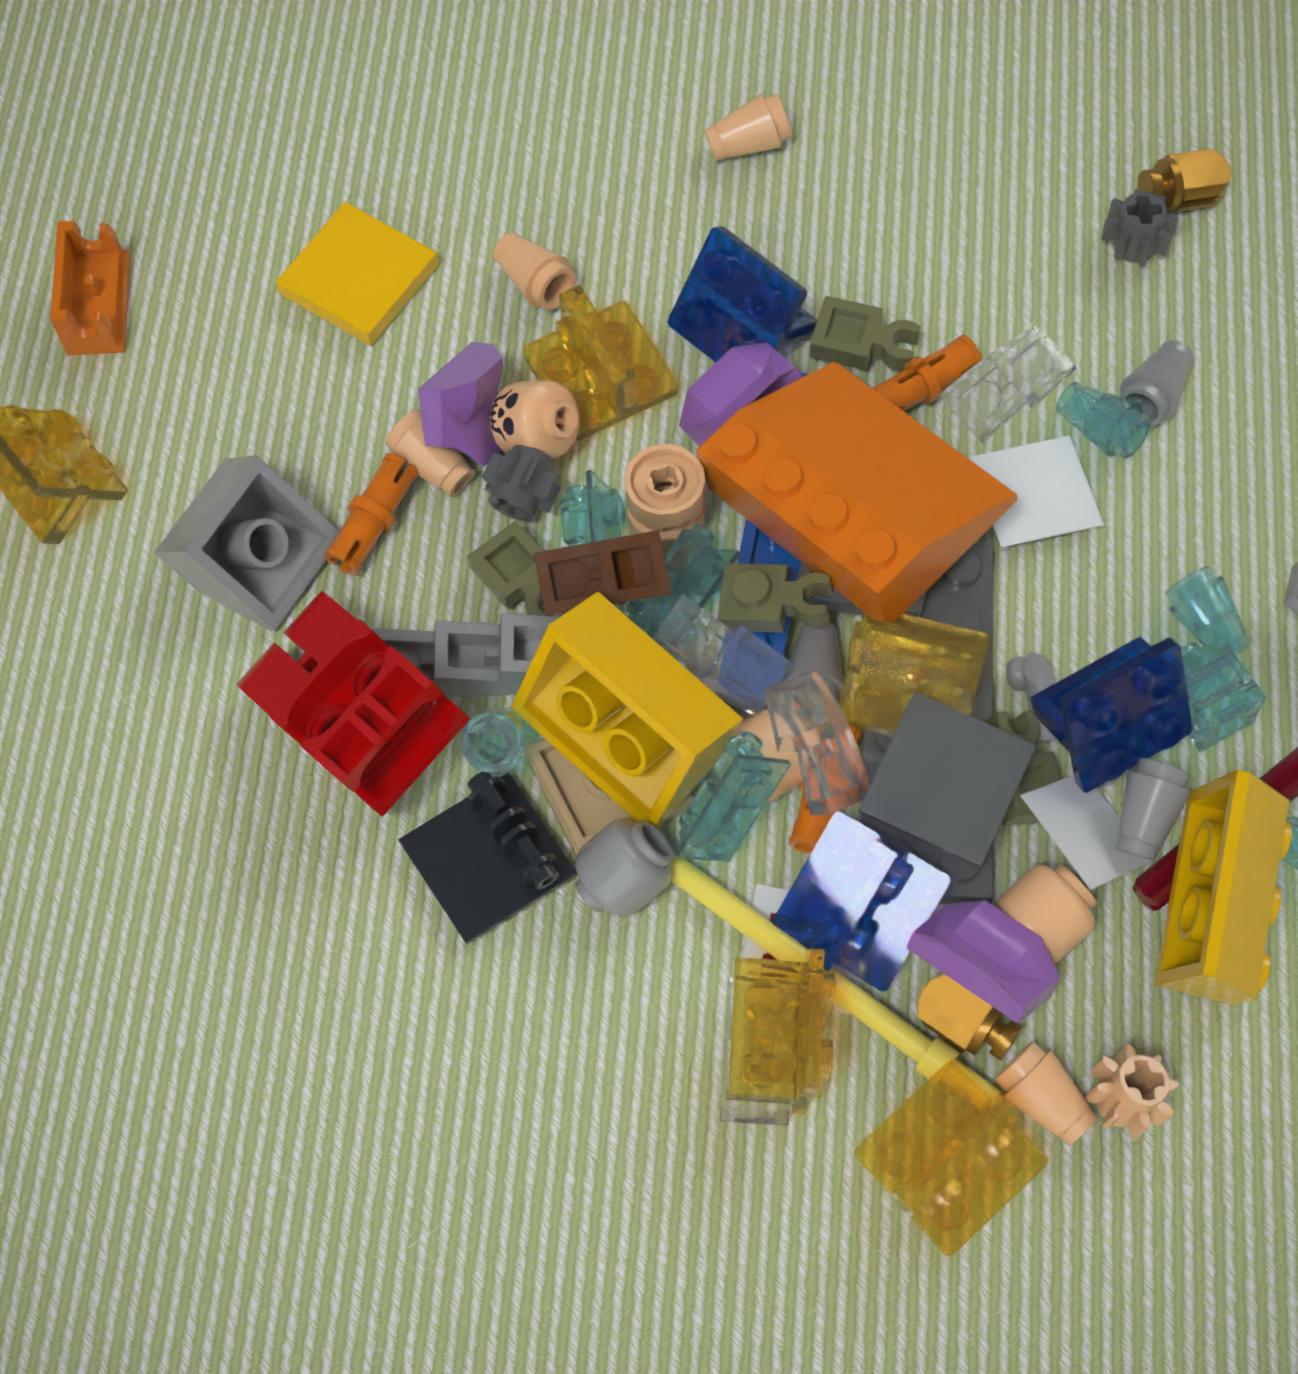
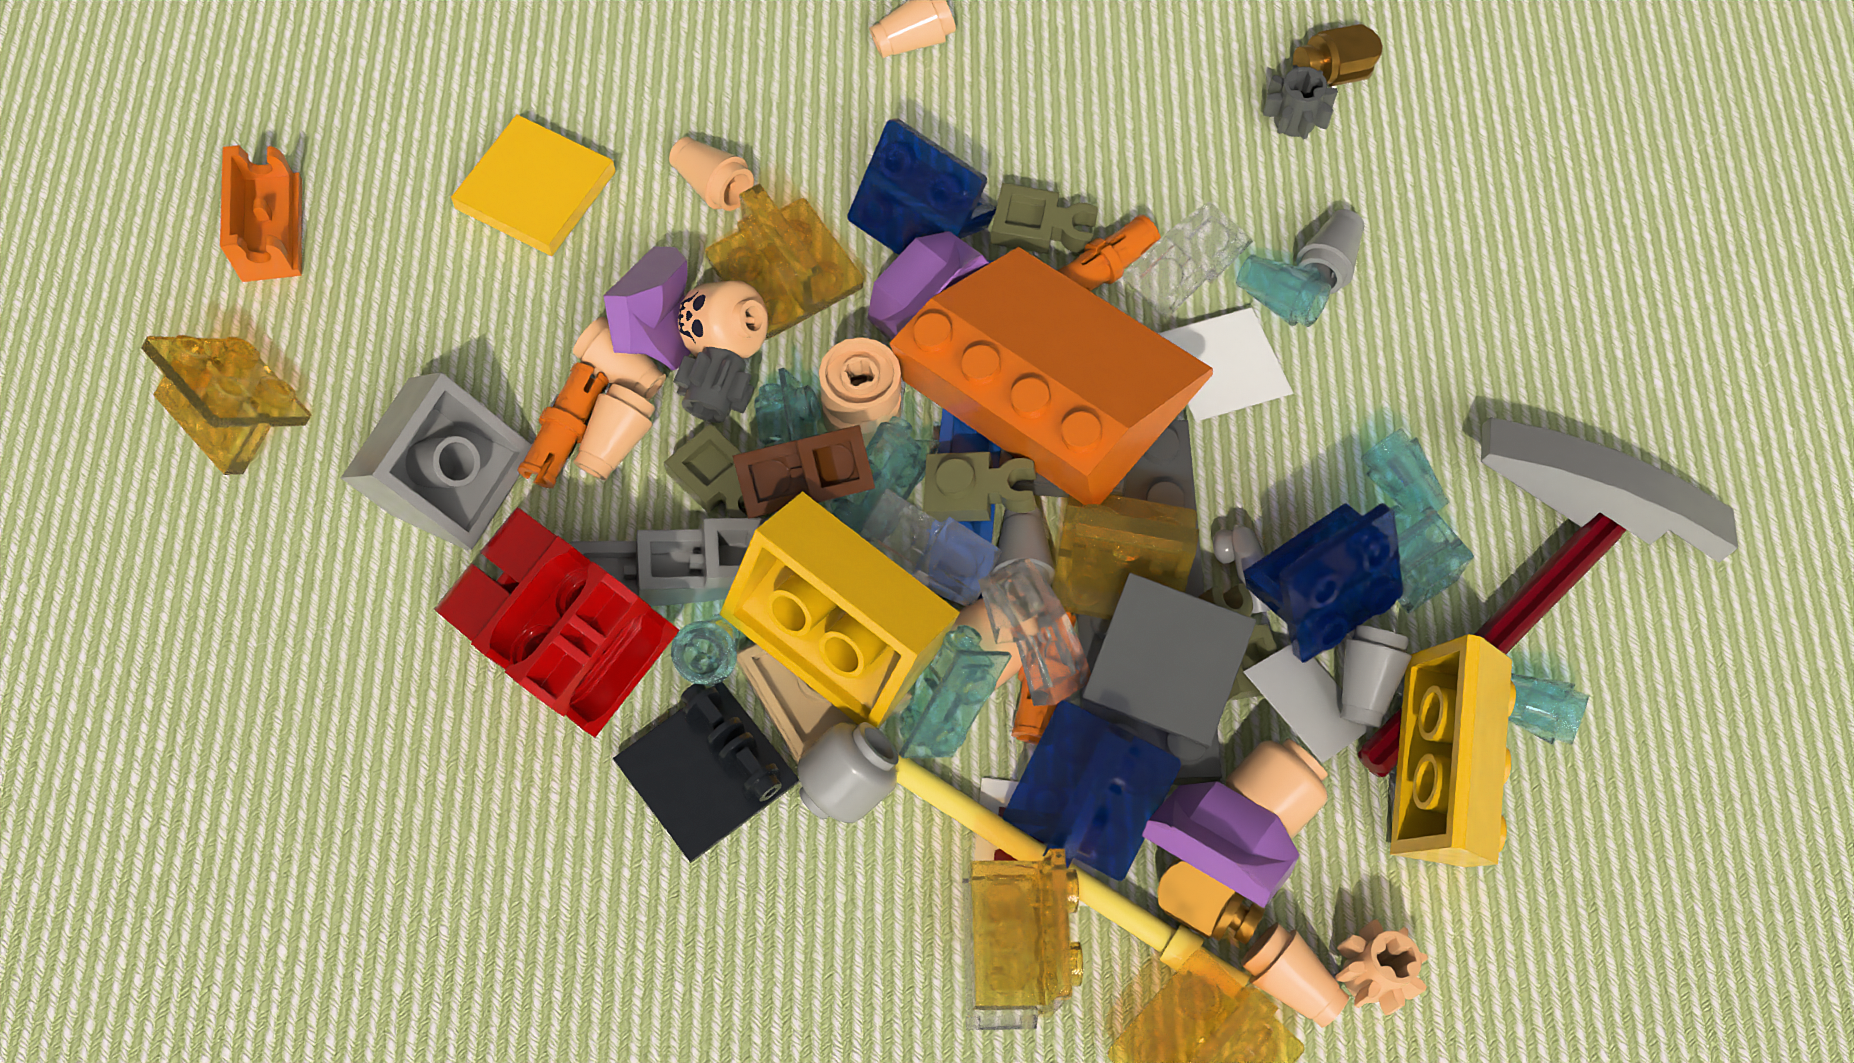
camera: 10 degrees left, 0 degrees up
(420, 522) = (613, 430): none -> light nougat cone

